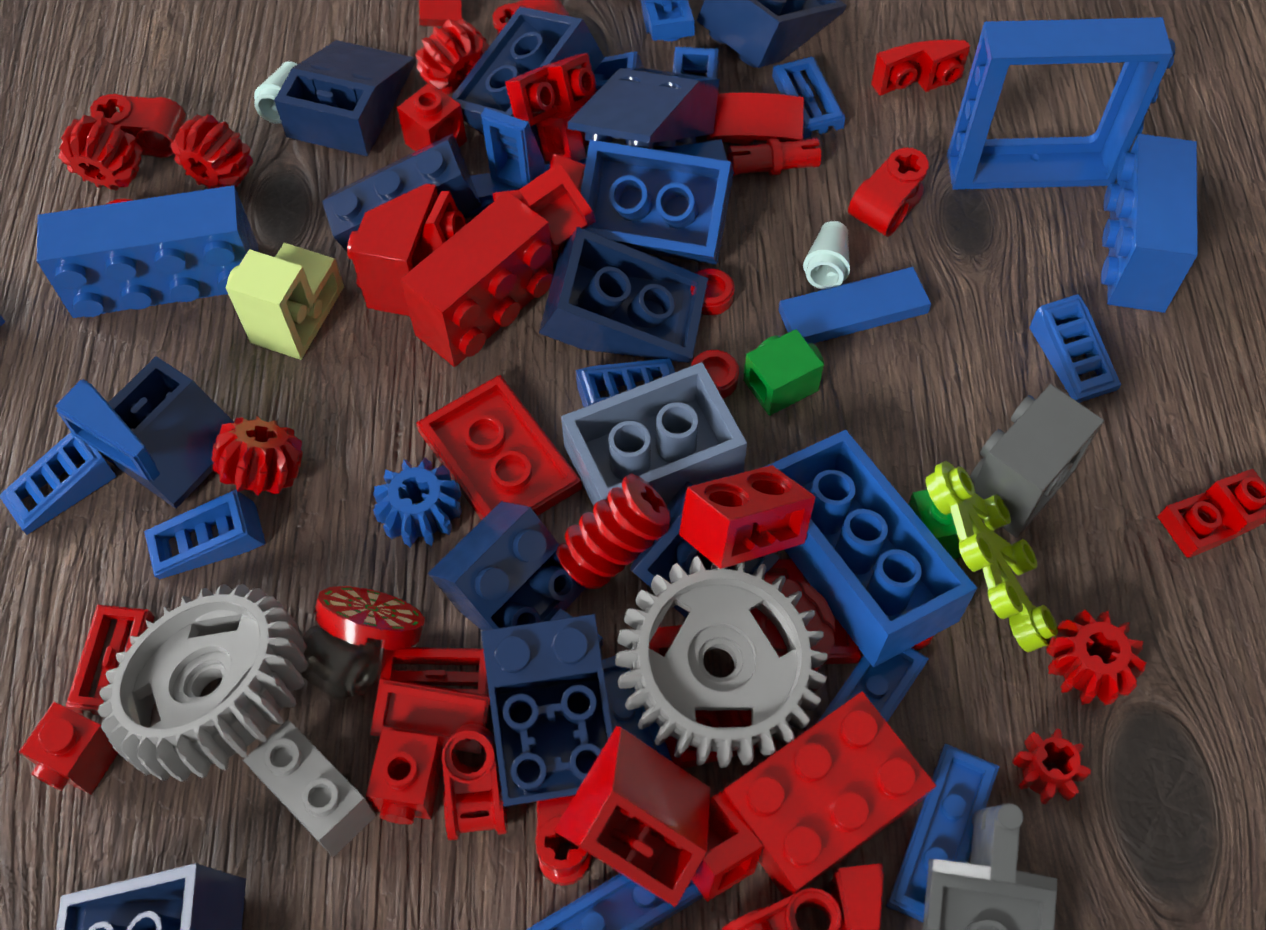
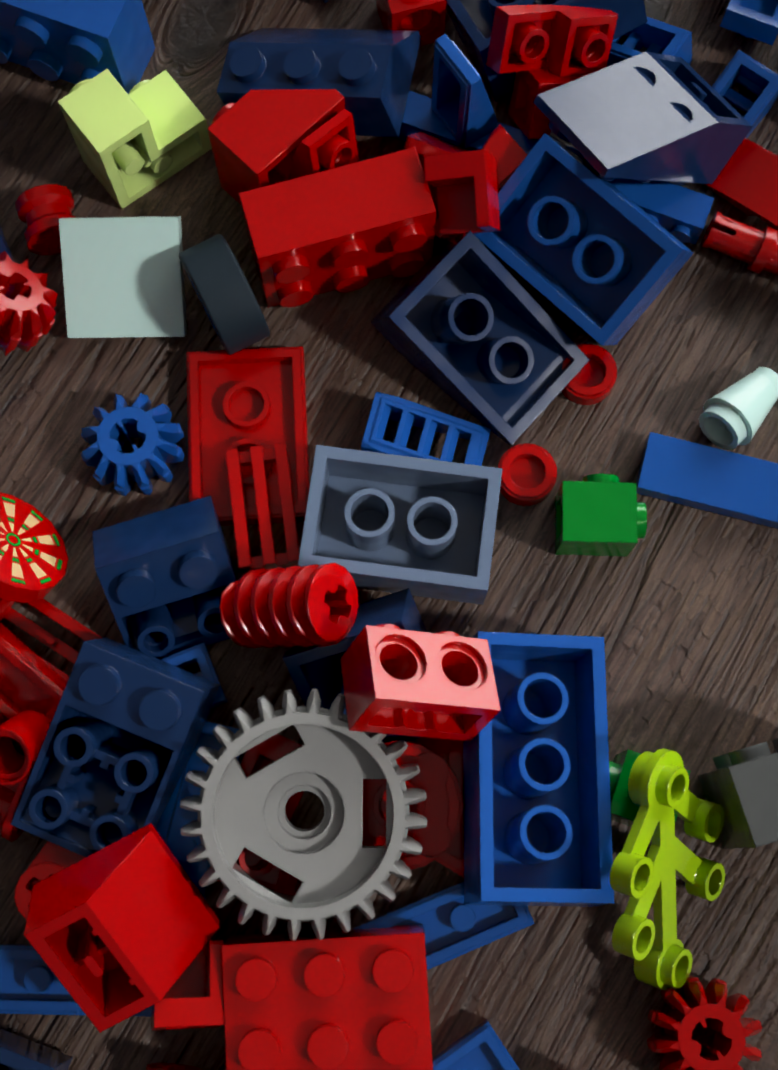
camera: 30 degrees right, 15 degrees up
(253, 387) = (41, 212): none -> red wheel
(337, 393) = (123, 276): none -> light aqua tile
(424, 362) = (224, 294): none -> black wheel
(520, 459) = (258, 458): none -> red tile

